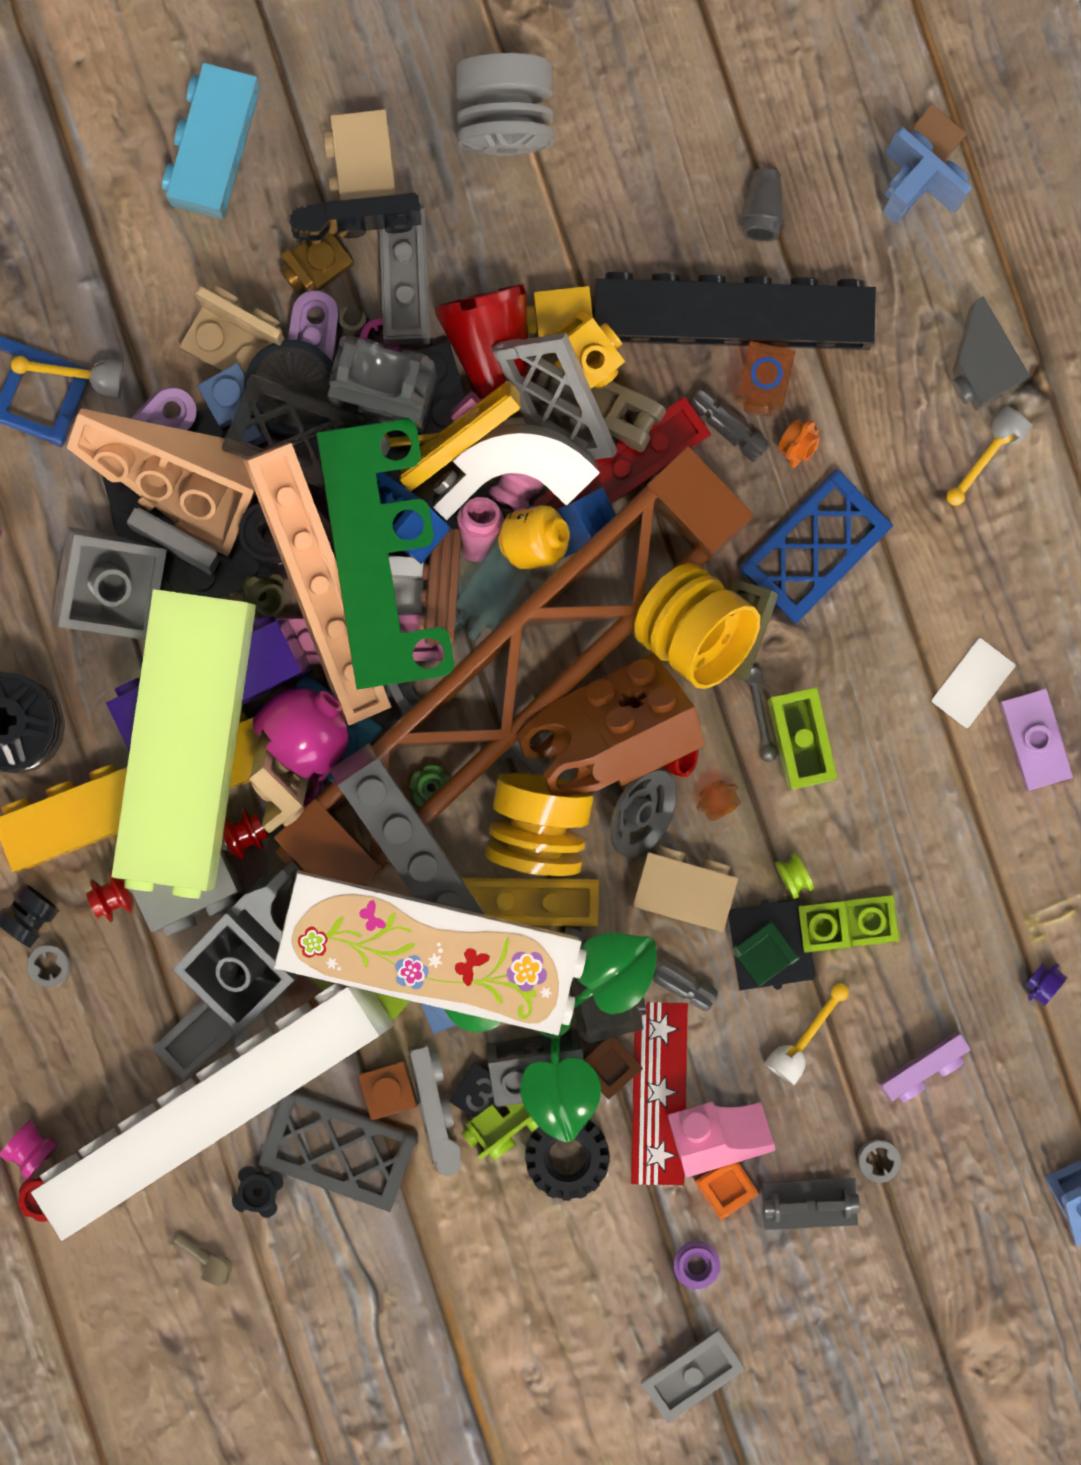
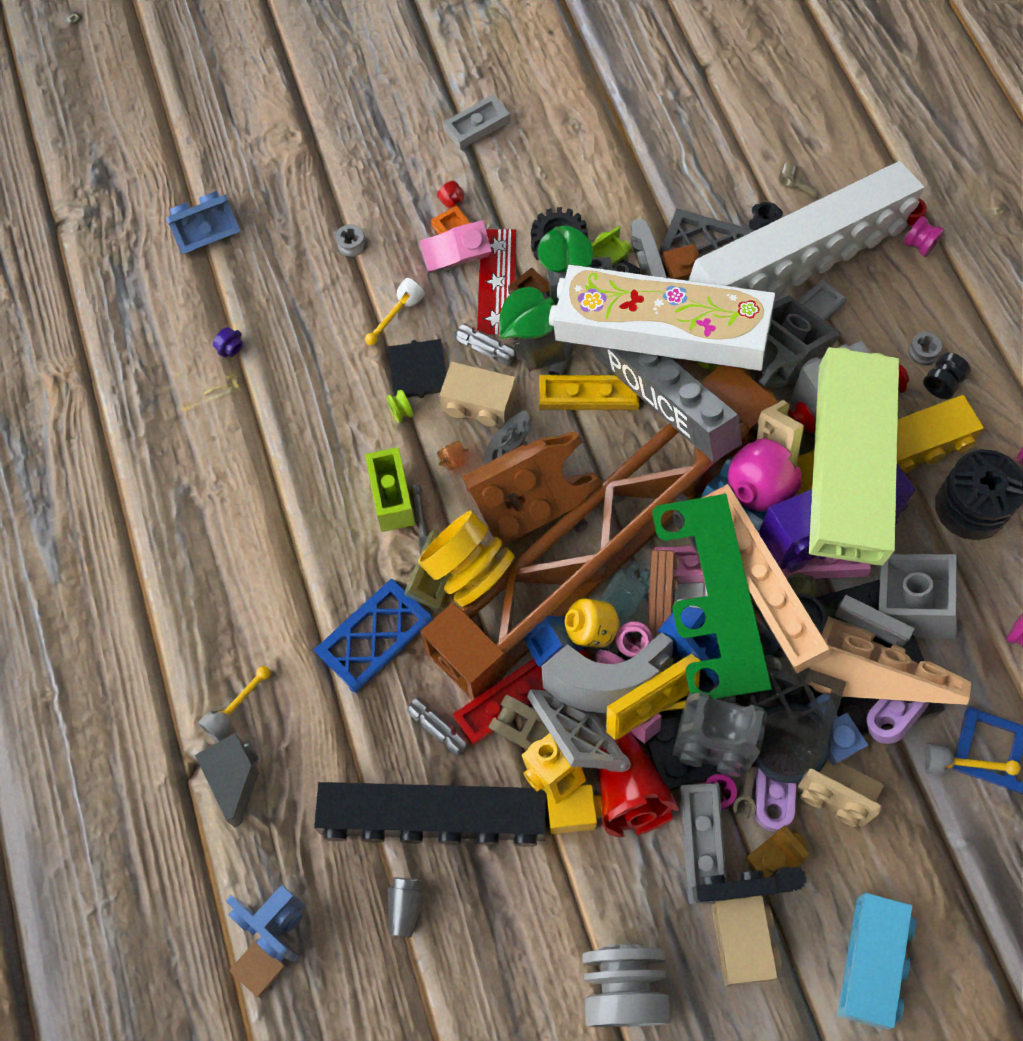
camera: 175 degrees left, 20 degrees down
(420, 780) = (667, 456): bright green plate -> none
(538, 833) = (591, 412): yellow wheel -> none
(703, 1278) = (473, 174): medium lavender plate -> none
(730, 1239) = (450, 194): none -> red hinge
(764, 378) = (408, 758): clear orange brick -> none
(764, 953) = (422, 356): dark green panel -> none
(799, 442) = (382, 709): orange plate -> none
(810, 1203) = (391, 216): dark grey hinge -> none
(849, 923) = (366, 380): lime slope -> none
(941, 1058) = (316, 290): lavender plate -> none
(973, 683) = (261, 541): white sticker -> none
(1036, 740) = (219, 500): lavender plate -> none

